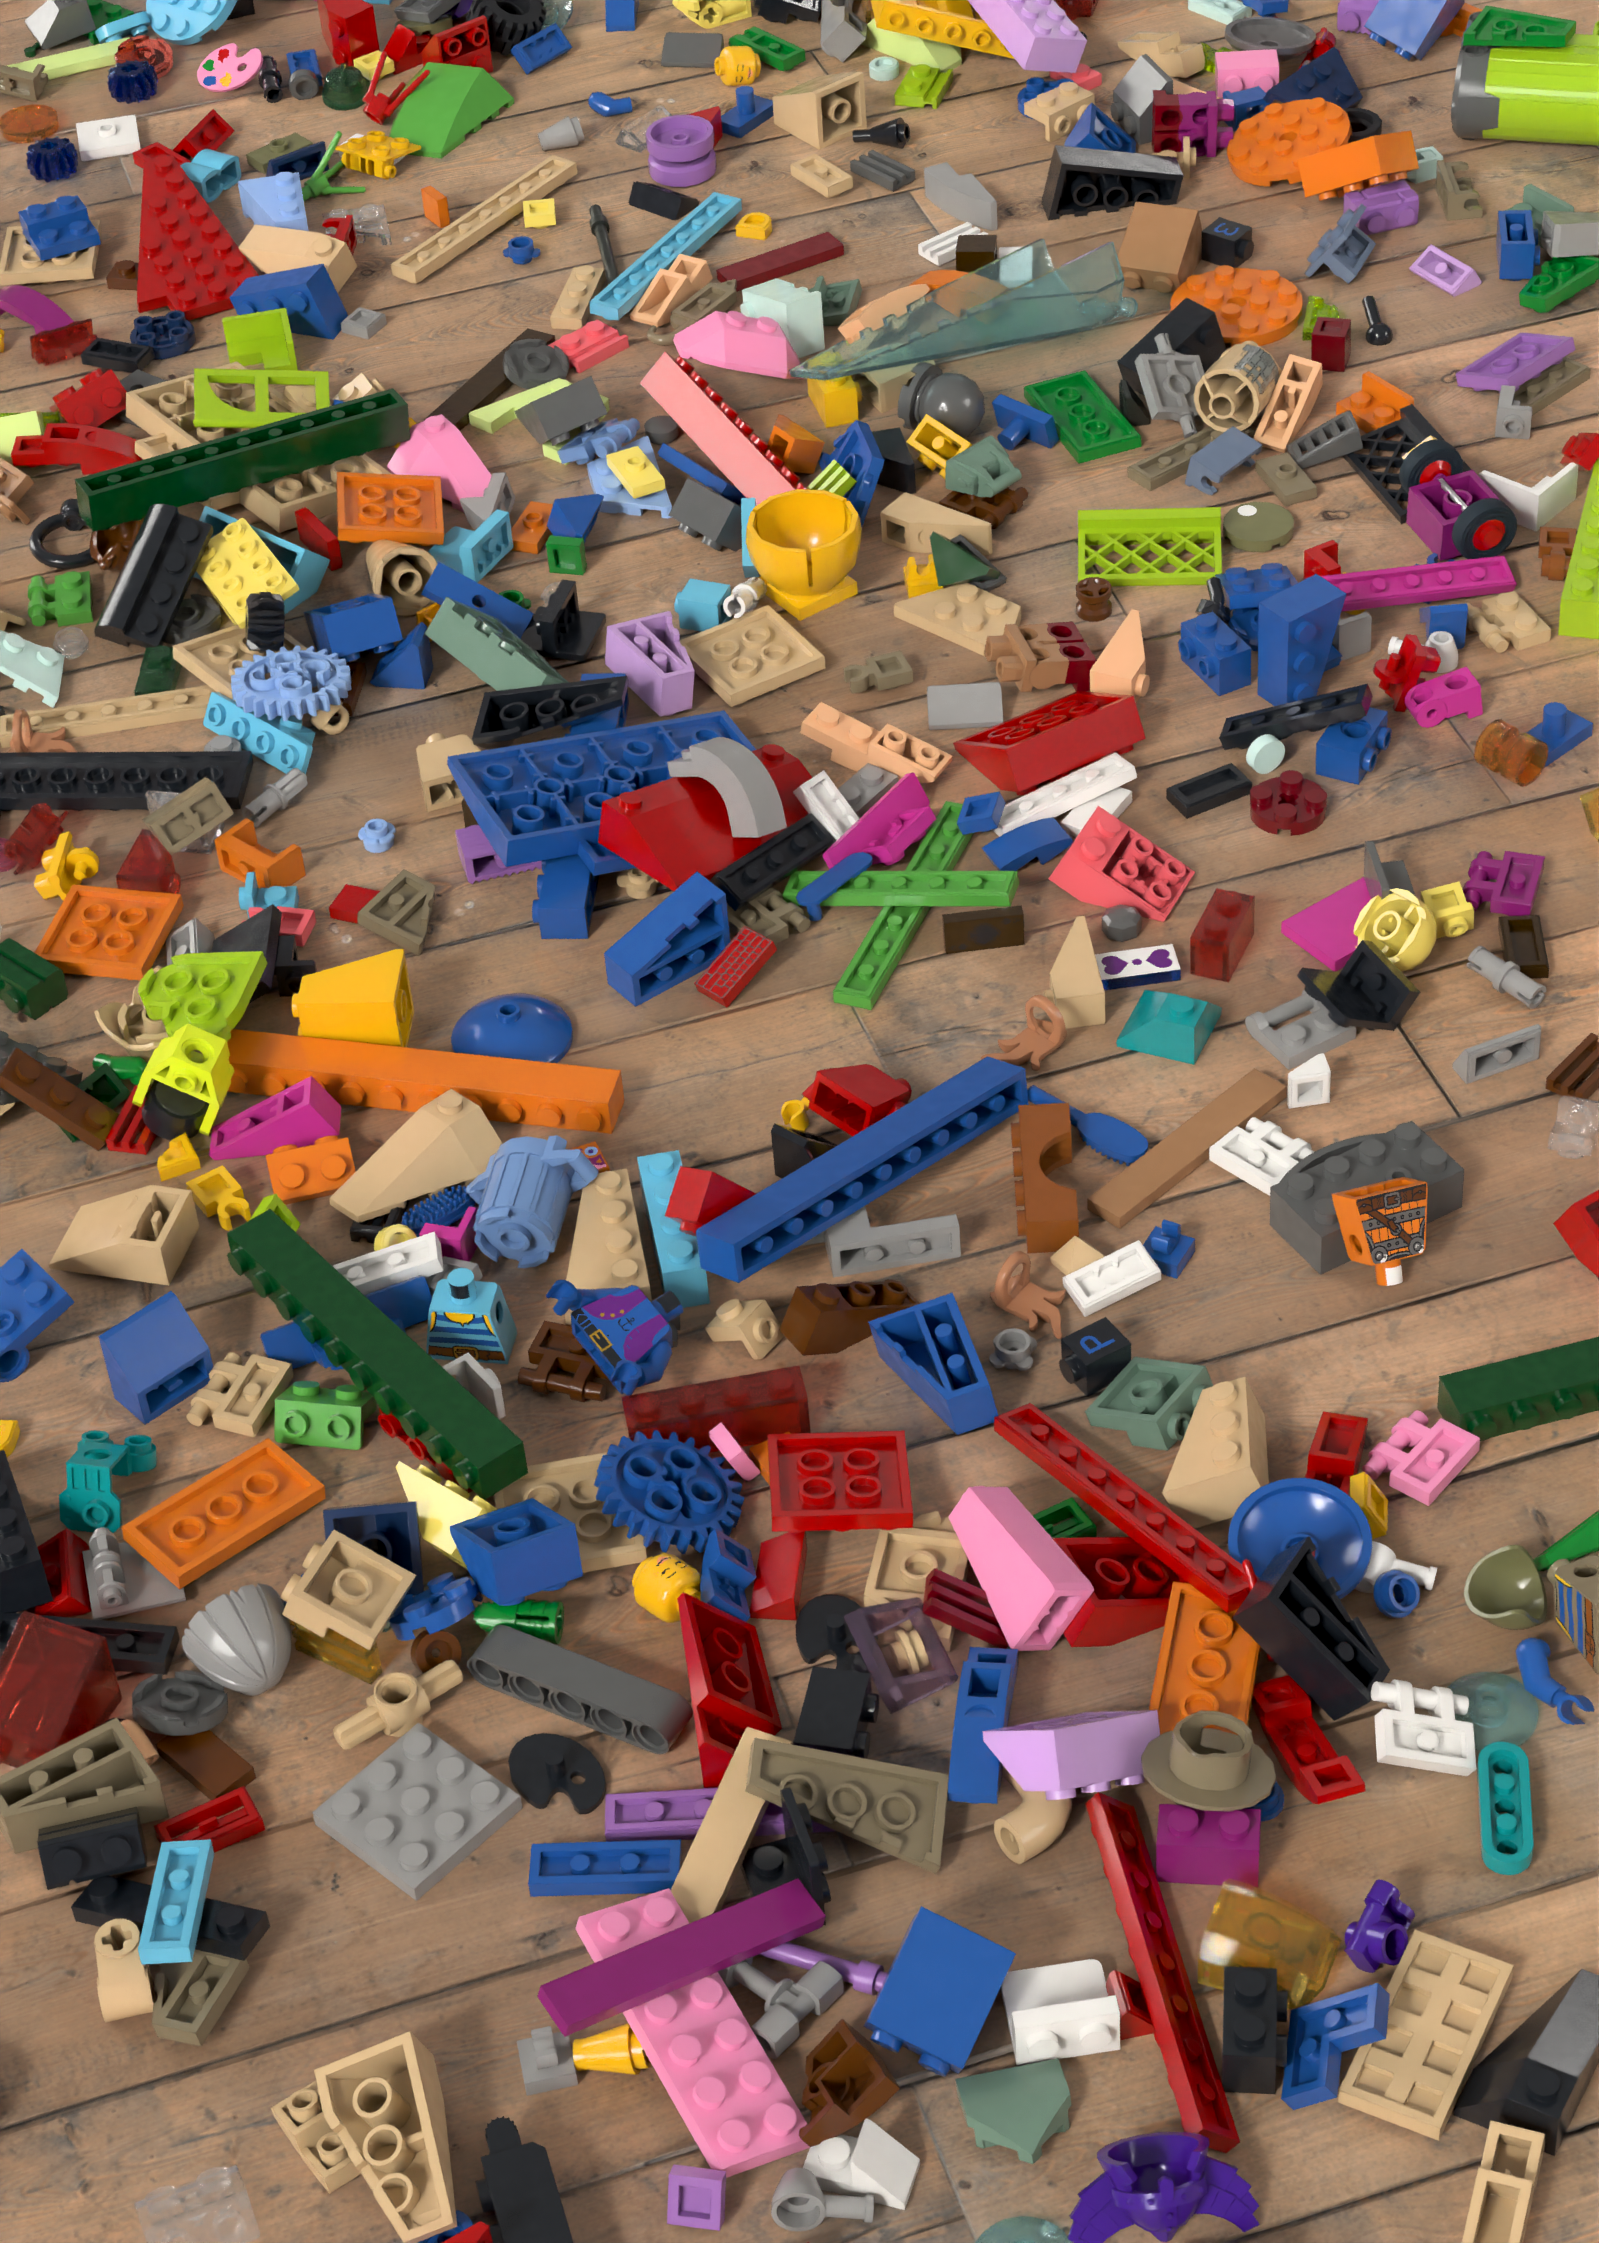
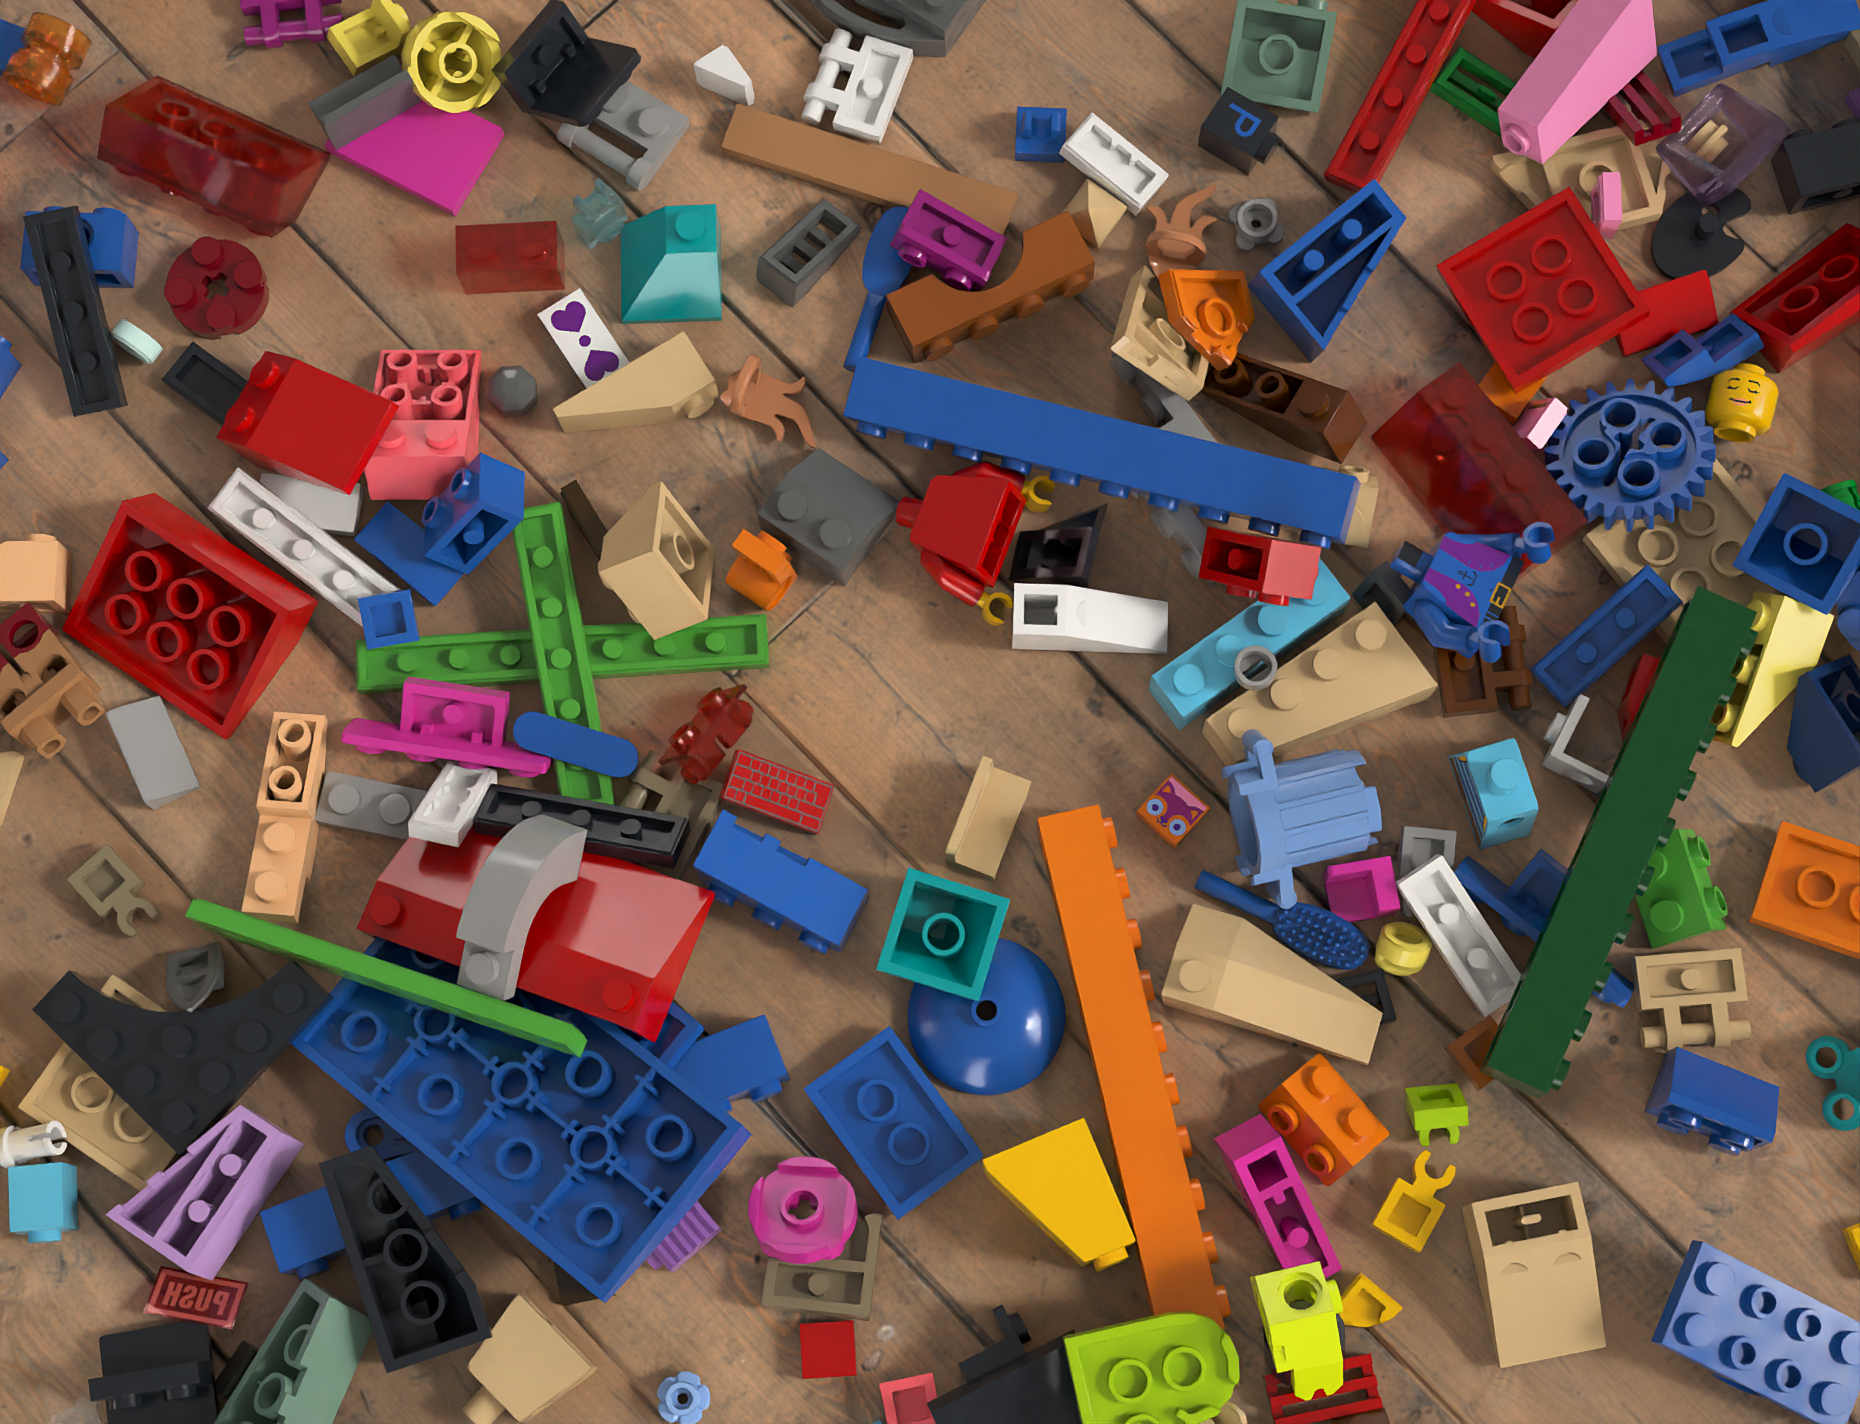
camera: 115 degrees left, 35 degrees up
(446, 920) = (807, 1239): none -> dark pink plate
(472, 966) = (893, 1123): none -> blue plate
(537, 1425) = (1606, 636): none -> blue tile
(580, 1000) = (943, 934): none -> teal slope
(592, 658) = (196, 1299): none -> clear red sticker
(636, 1179) = (1248, 660): none -> light grey hinge
(648, 1063) = (987, 820): none -> tan panel
(742, 665) = (185, 1065): none -> black plate
(748, 1142) = (1087, 620): none -> white slope
(749, 729) = (388, 977): none -> bright green tile
(798, 687) = (194, 975): none -> dark grey plate
(807, 952) = (719, 717): none -> clear red hinge
(884, 1538) = (1607, 204): none -> bright pink tile
(900, 993) = (761, 569): none -> orange plate
(921, 1041) = (827, 515): none -> dark grey slope
(933, 934) = (658, 564): none -> tan slope
(935, 1228) = (1153, 344): none -> tan wing
(950, 1268) = (1209, 310): none -> orange plate
(1029, 854) = (473, 513): none -> blue brick
(1092, 1150) = (947, 243): none -> magenta bracket
(1139, 1069) = (789, 277): none -> dark grey slope
(1148, 795) = (306, 423): none -> red slope
(1228, 986) = (599, 215): none -> clear light blue plate
(1396, 813) = (211, 155): none -> clear red slope

